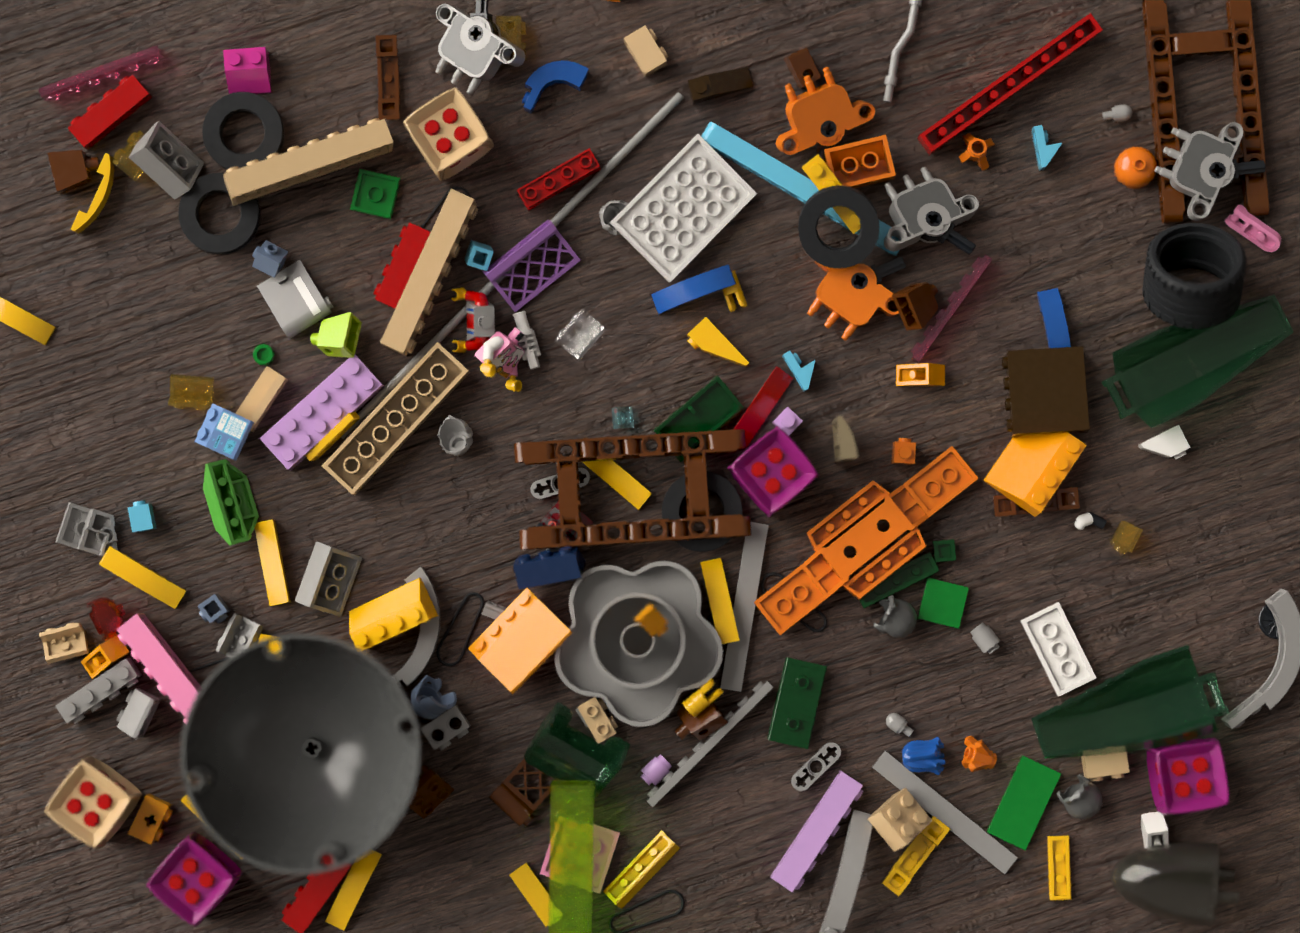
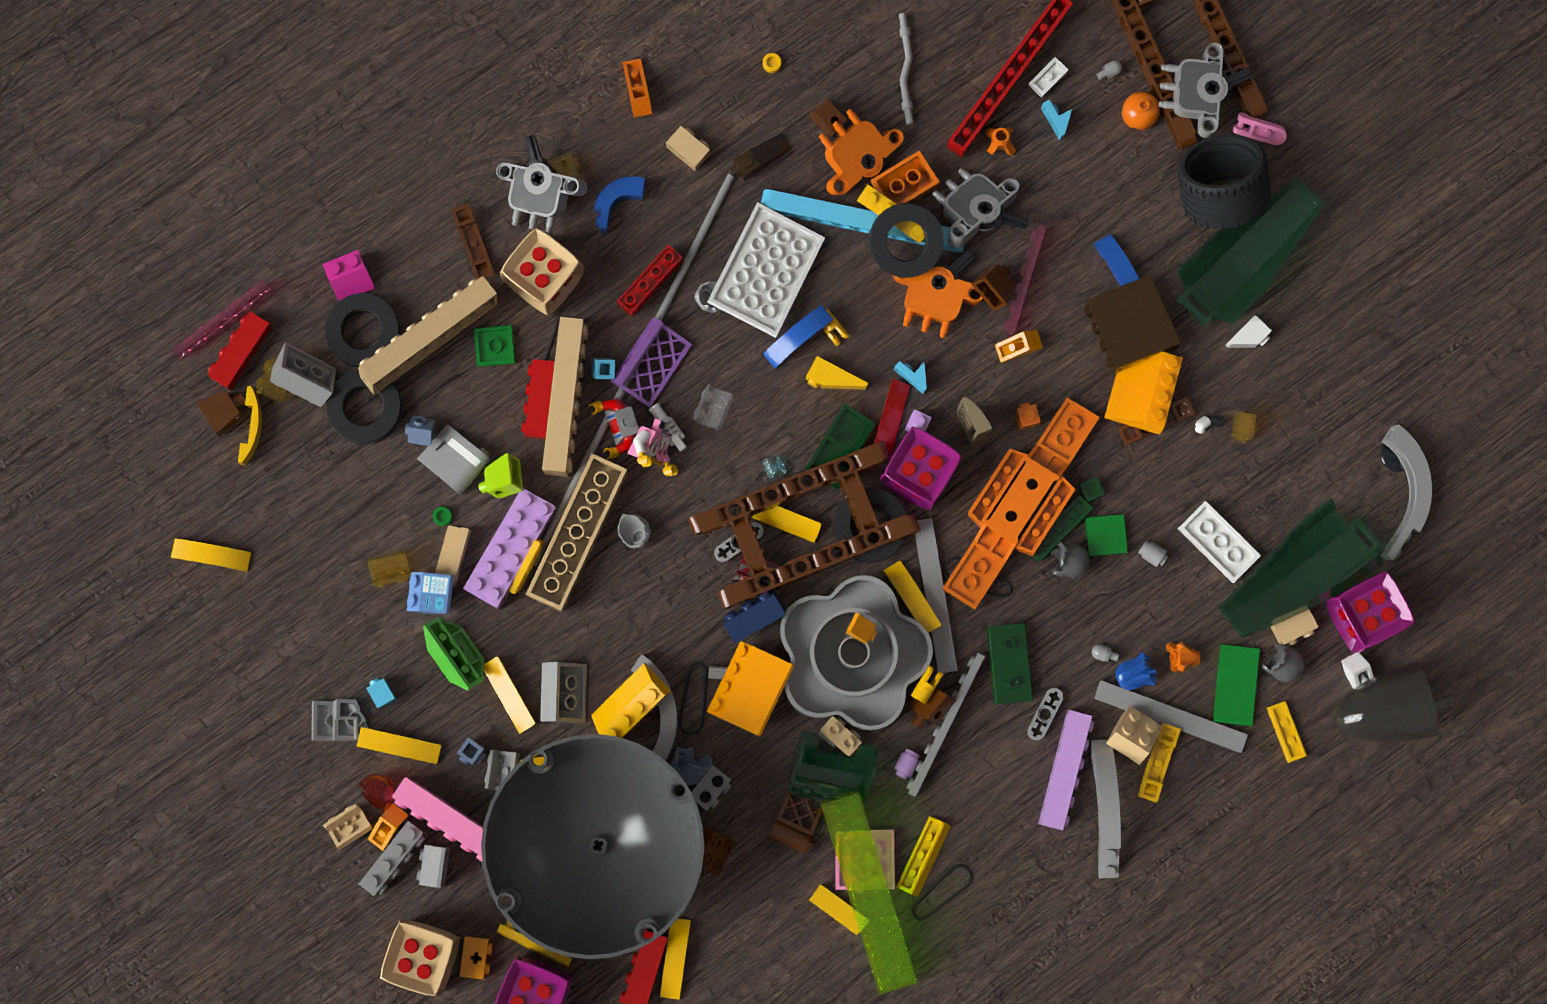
camera: 20 degrees left, 5 degrees down
(1050, 99) = (1048, 77): none -> white plate

